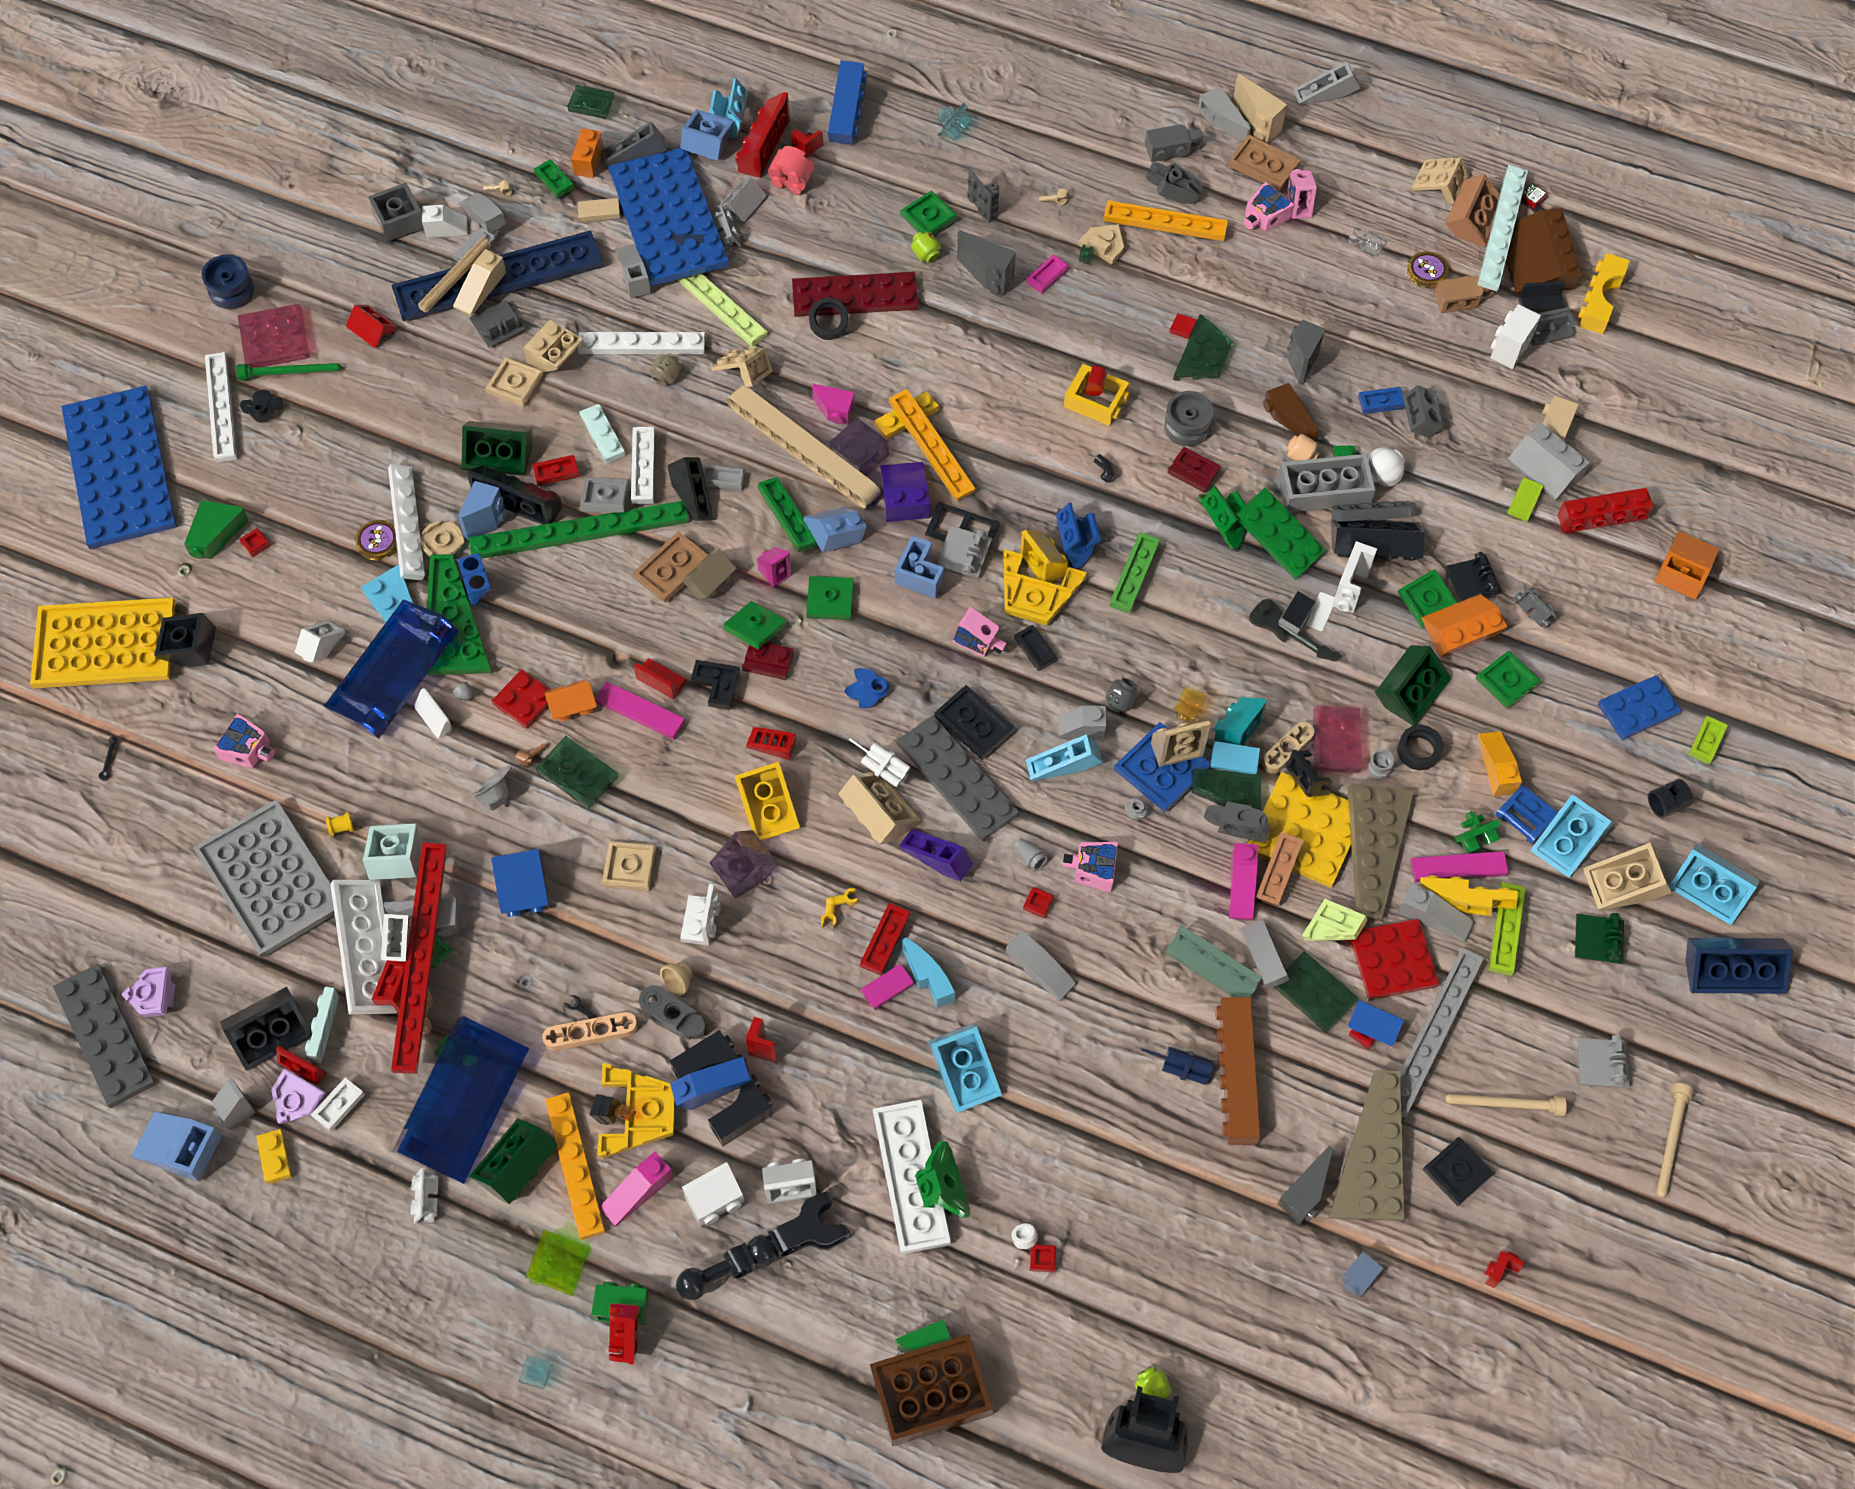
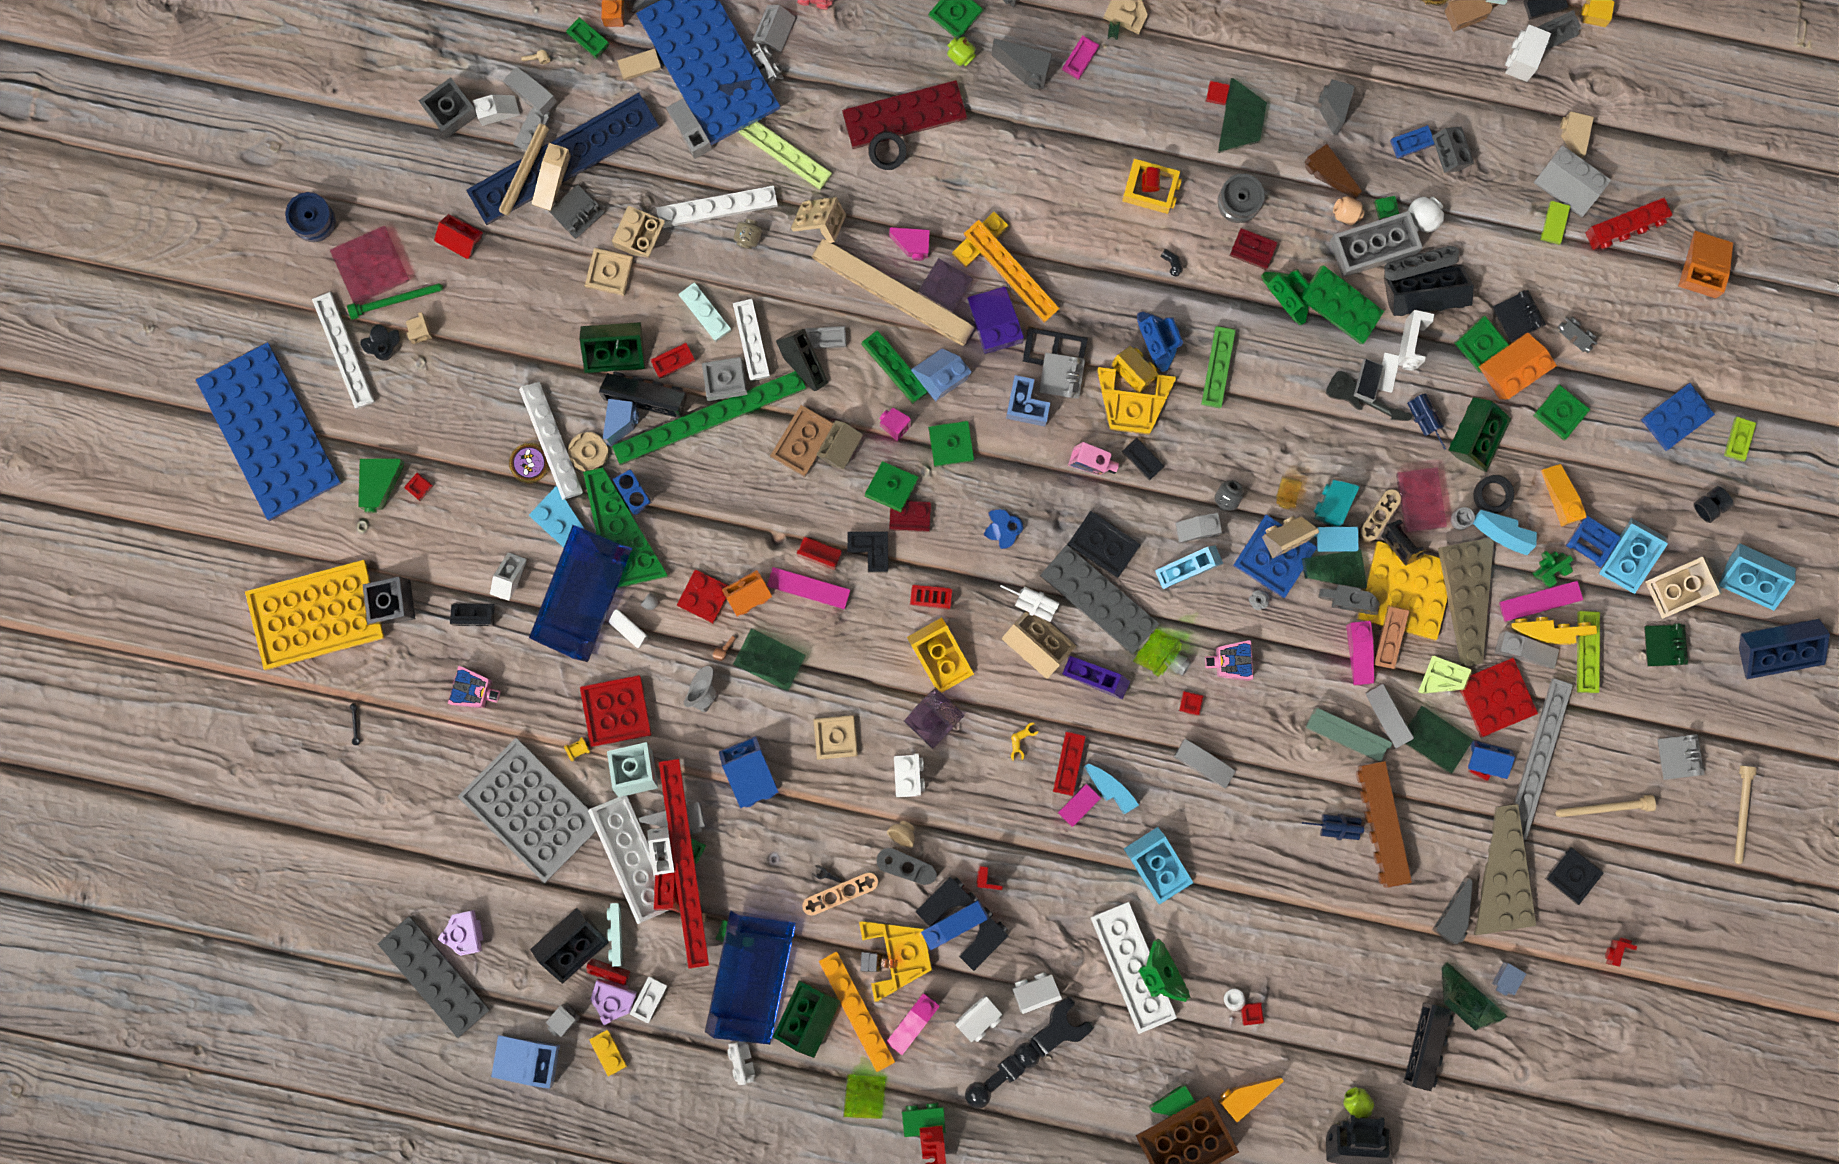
camera: 15 degrees left, 20 degrees up
(269, 673) = (472, 614): none -> black hinge
(303, 400) = (418, 329): none -> tan panel
(393, 793) = (615, 711): none -> red plate
(1011, 838) = (1157, 650): none -> clear neon green hinge
(1016, 1352) = (1244, 1098): none -> light orange slope
(1250, 1333) = (1427, 1047): none -> black slope
(1308, 1290) = (1468, 1001): none -> clear green wing
(1355, 656) = (1426, 415): none -> dark blue piece
(1427, 784) = (1506, 532): none -> medium azure slope

